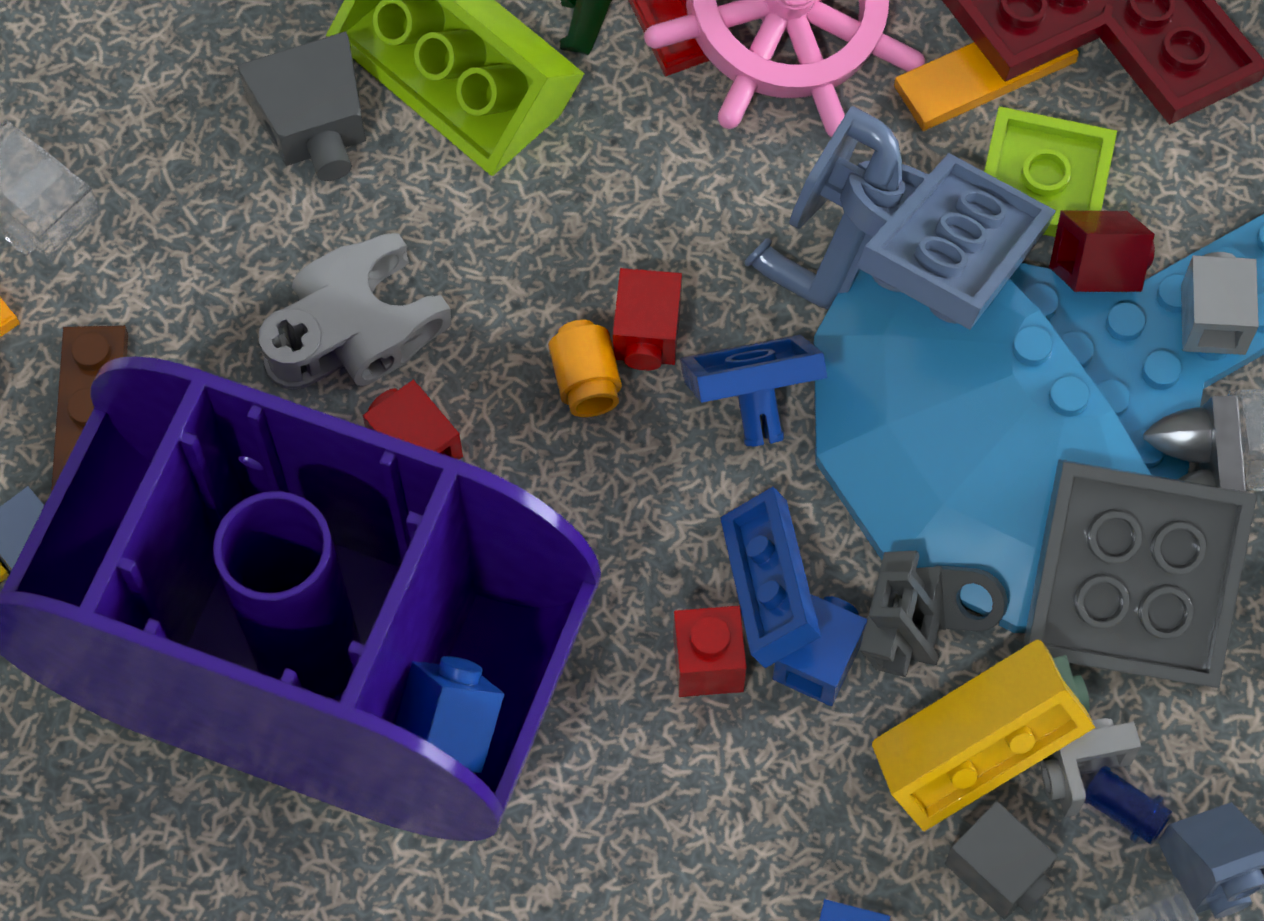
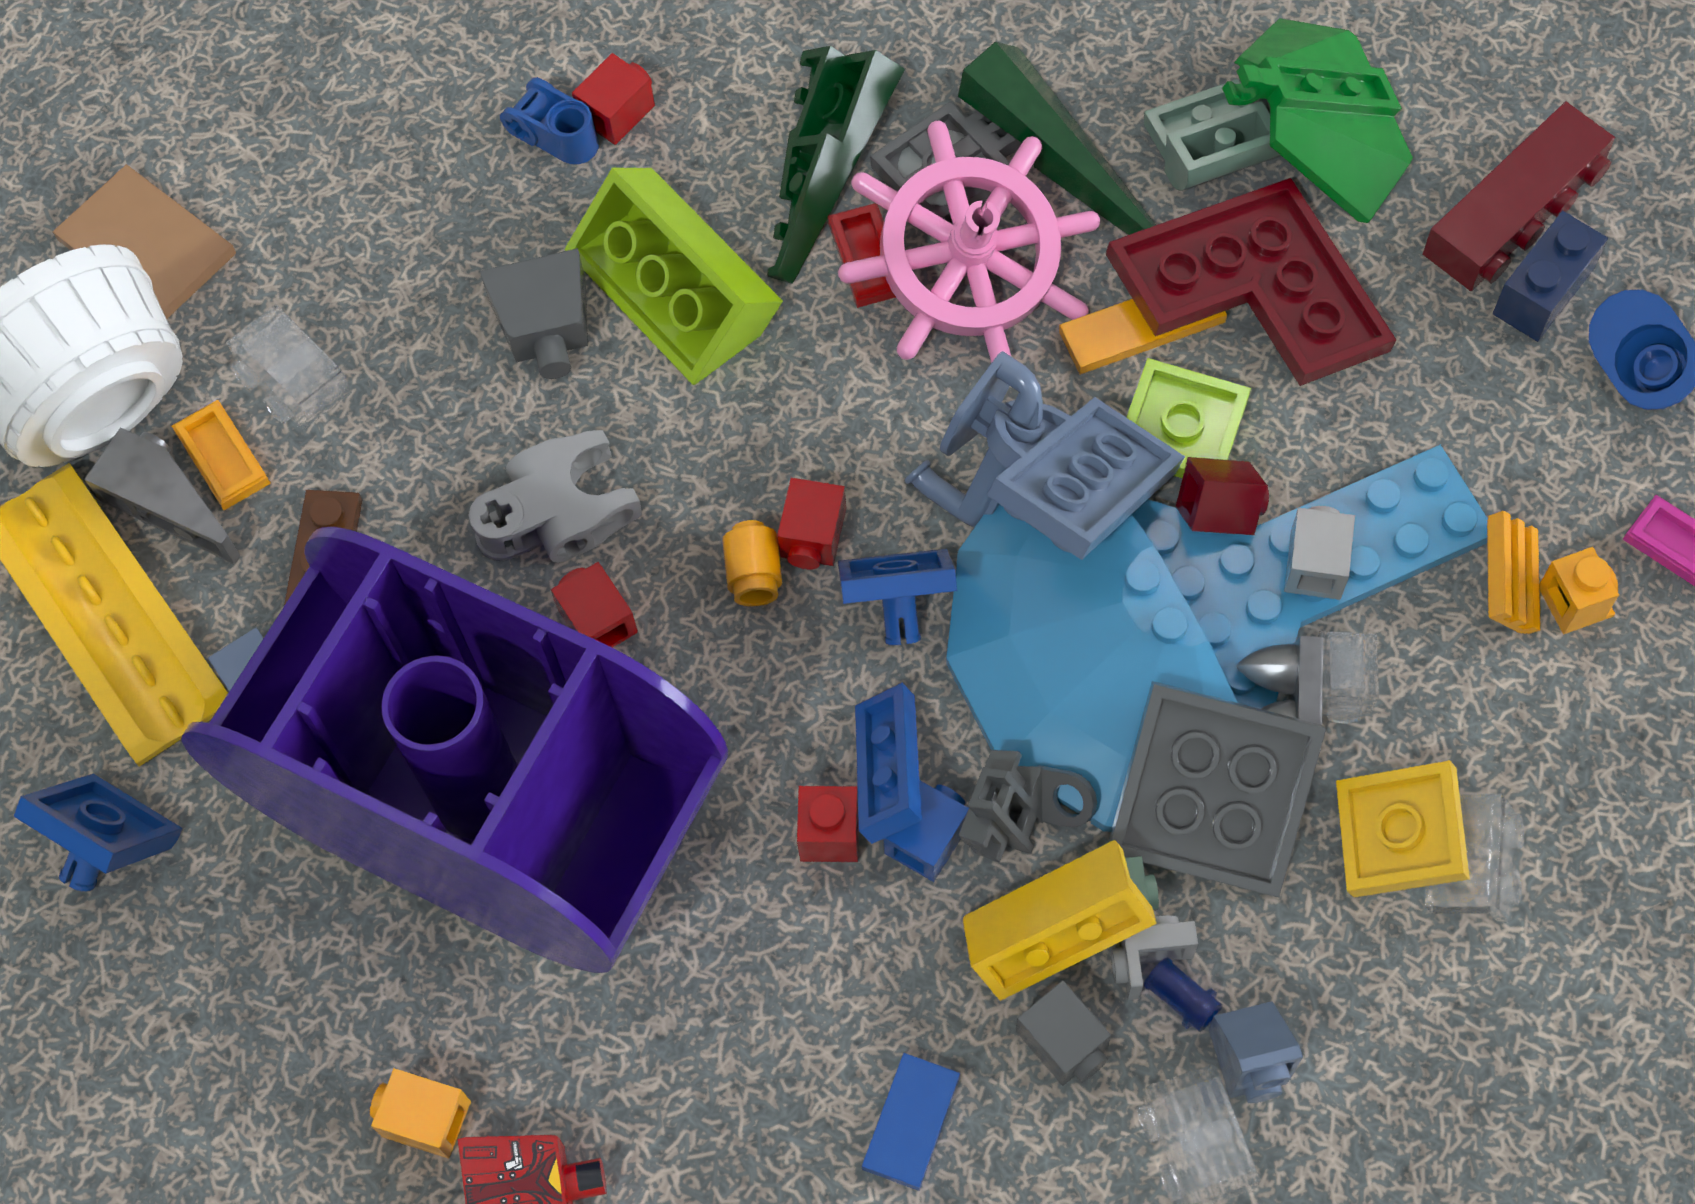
camera: 10 degrees right, 0 degrees up
(451, 708) = (580, 860): blue brick -> none

